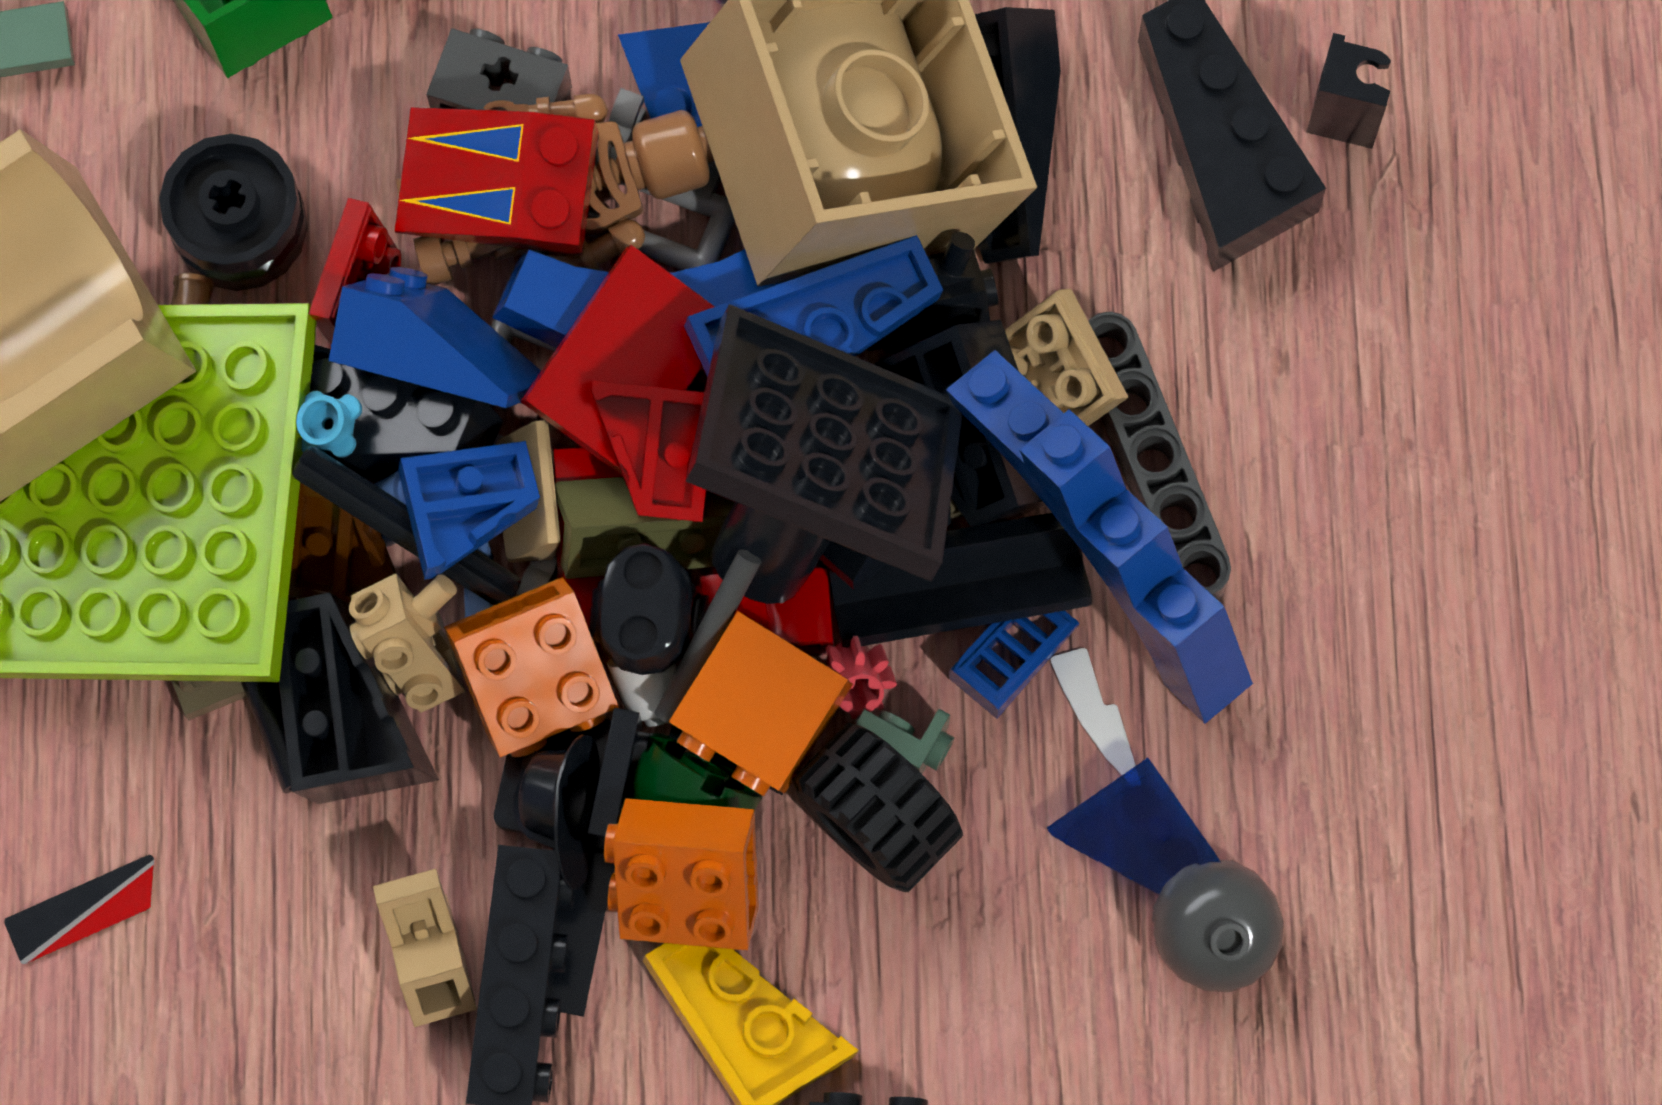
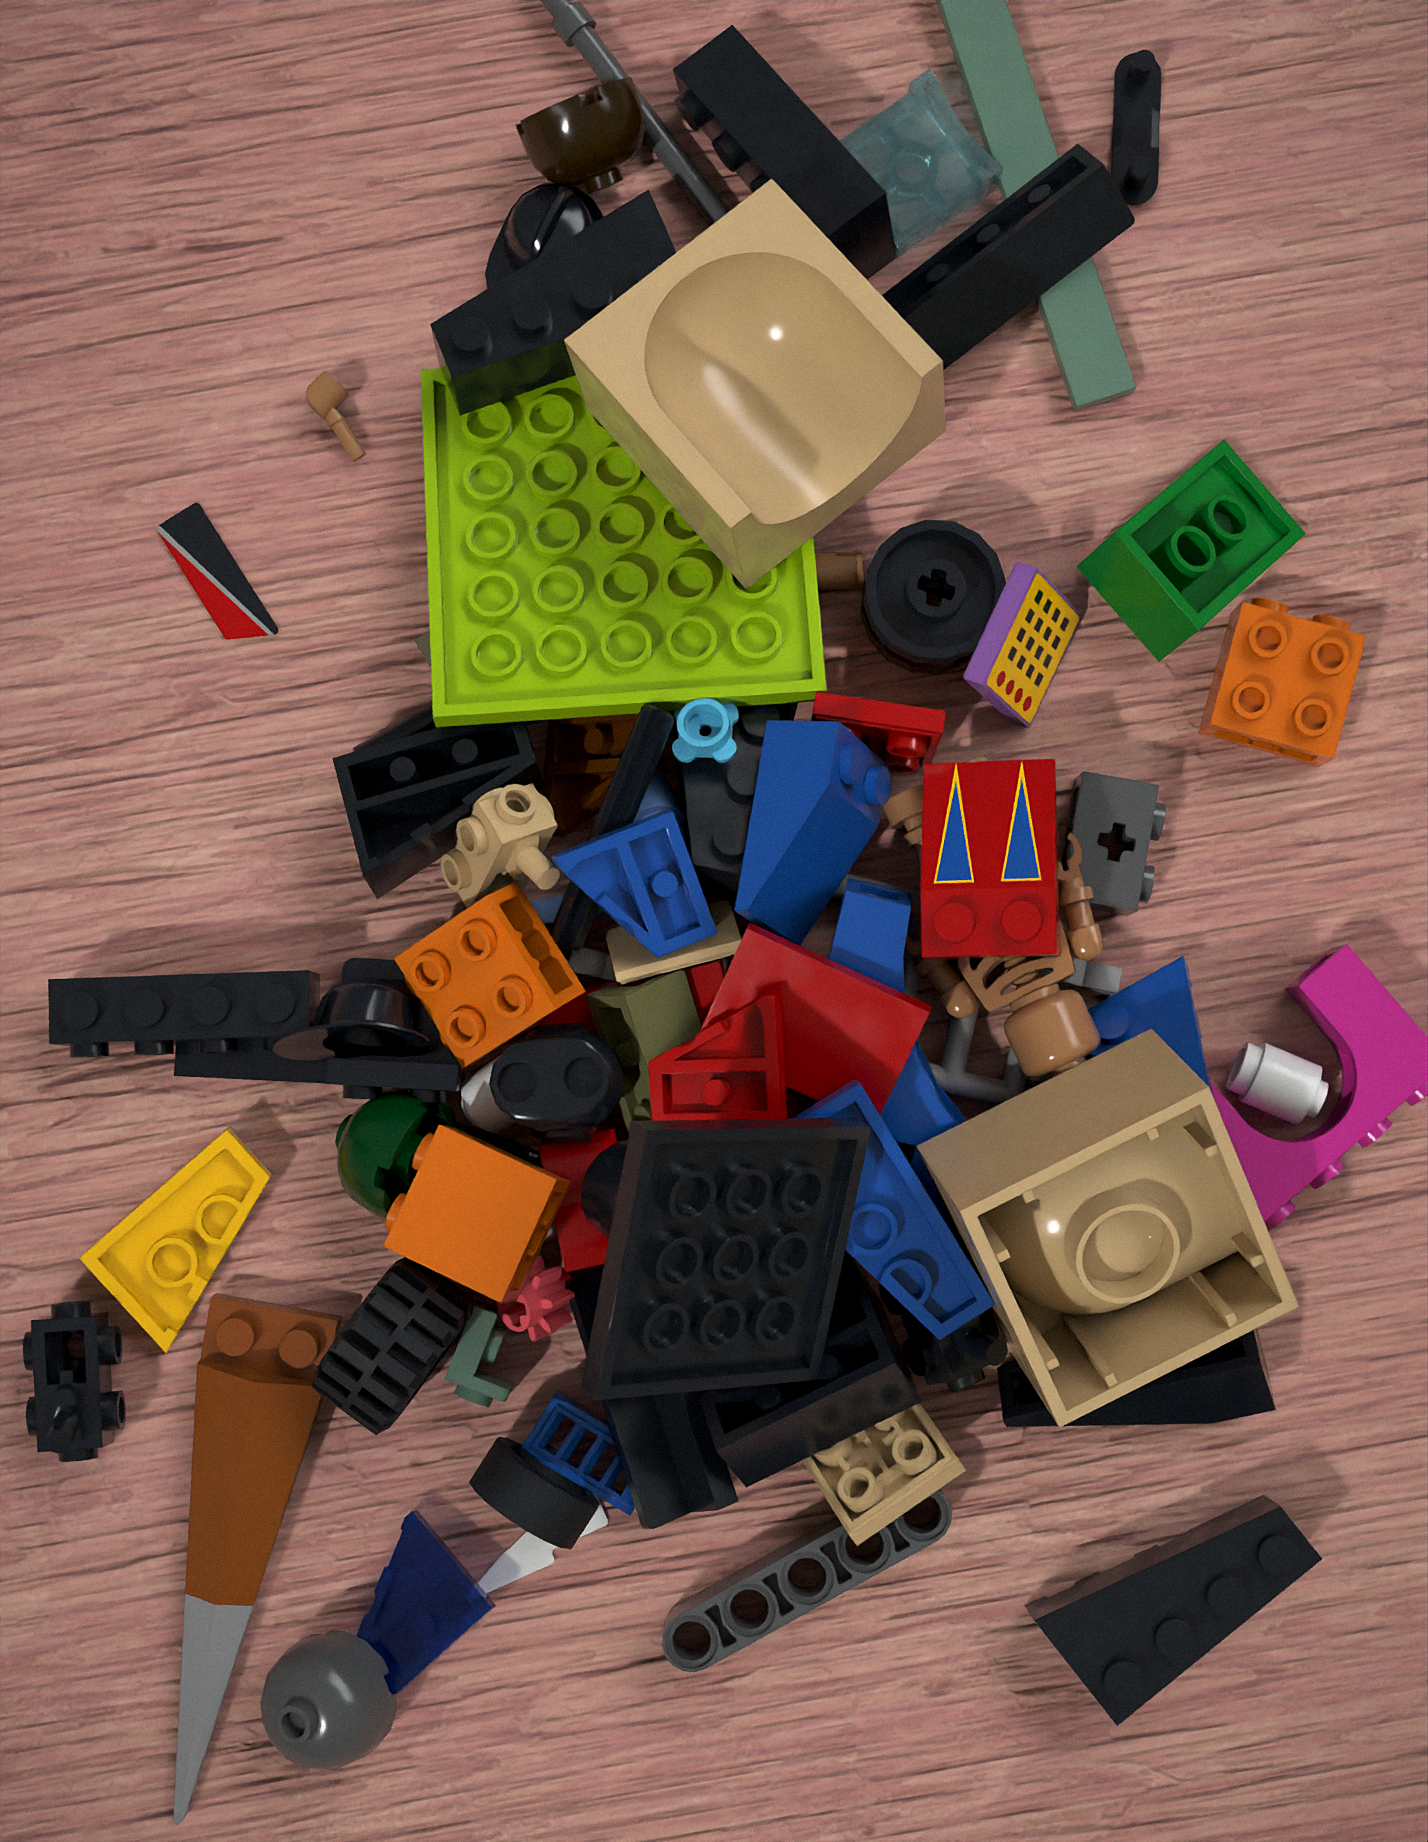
camera: 80 degrees right, 10 degrees up
(295, 133) = (1022, 644): none -> tile
(425, 947) = (205, 914): tan brick -> none
(683, 873) = (298, 1159): orange brick -> none
(709, 631) = (536, 1151): dark grey bar -> none
(936, 972) = (247, 1451): none -> dark orange plate
(1041, 697) = (533, 1494): none -> black tyre
(1117, 533) = (711, 1539): blue arch -> none
(1344, 104) = (1223, 1727): black hinge -> none

